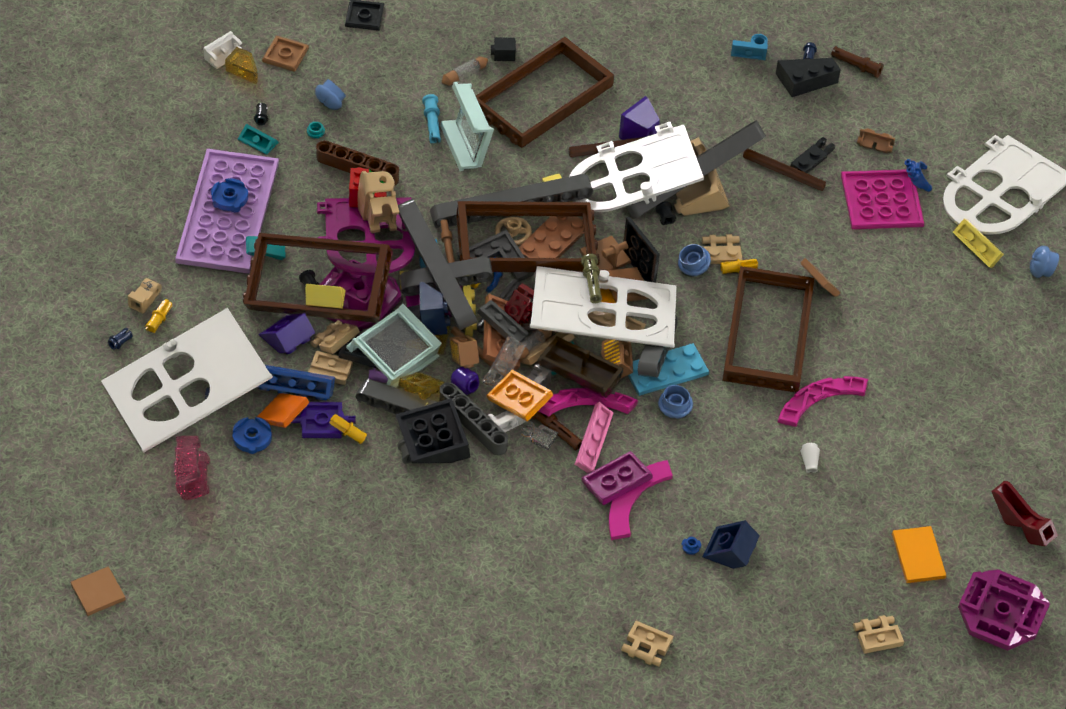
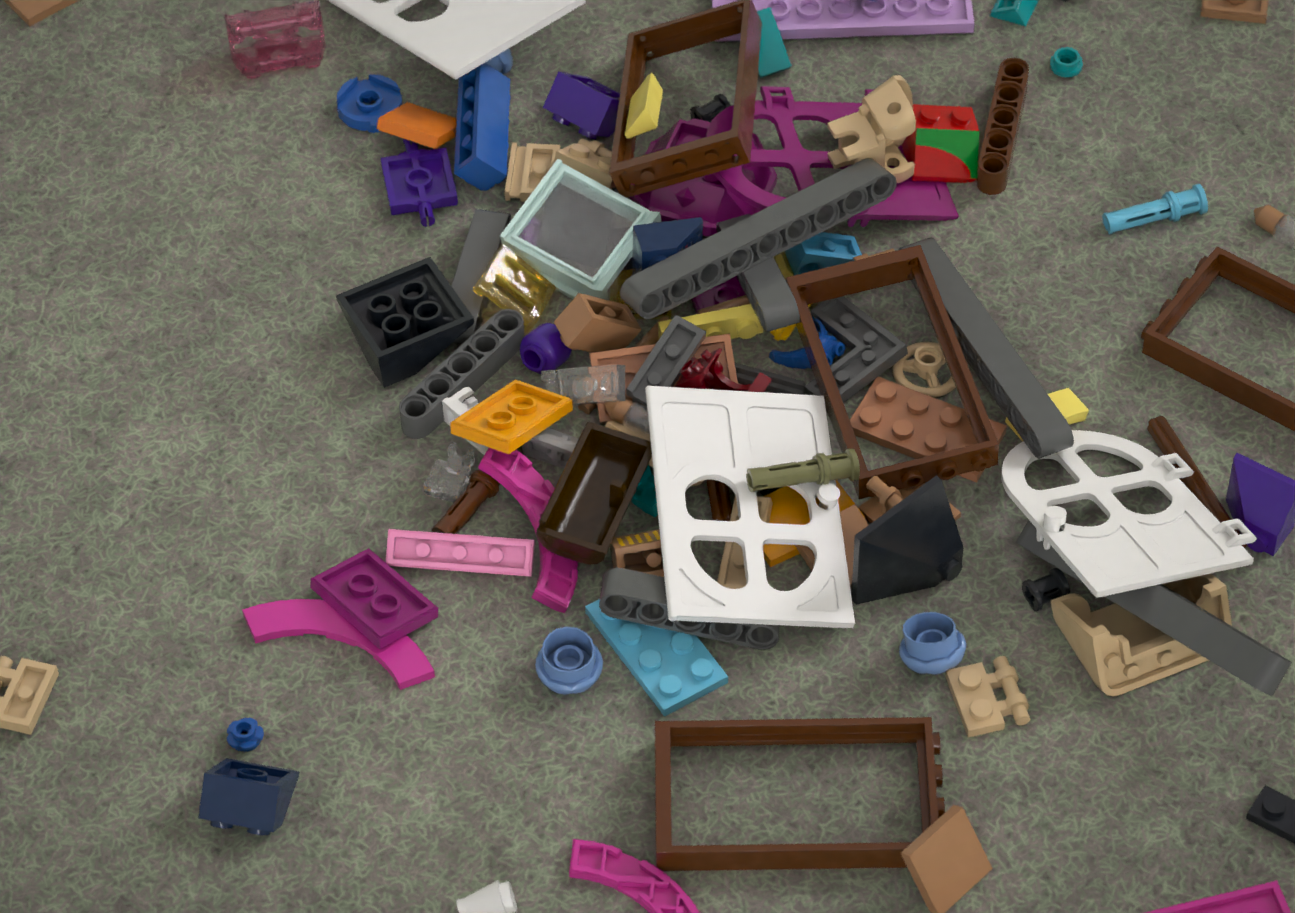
camera: 85 degrees right, 0 degrees up
(330, 95) = (1149, 59): medium blue piece -> none
(347, 428) = (397, 210): yellow axle -> none
(470, 132) = (1127, 232): light aqua piece -> none
(734, 266) = (949, 726): yellow axle -> none
(784, 169) = (1245, 779): reddish brown axle -> none

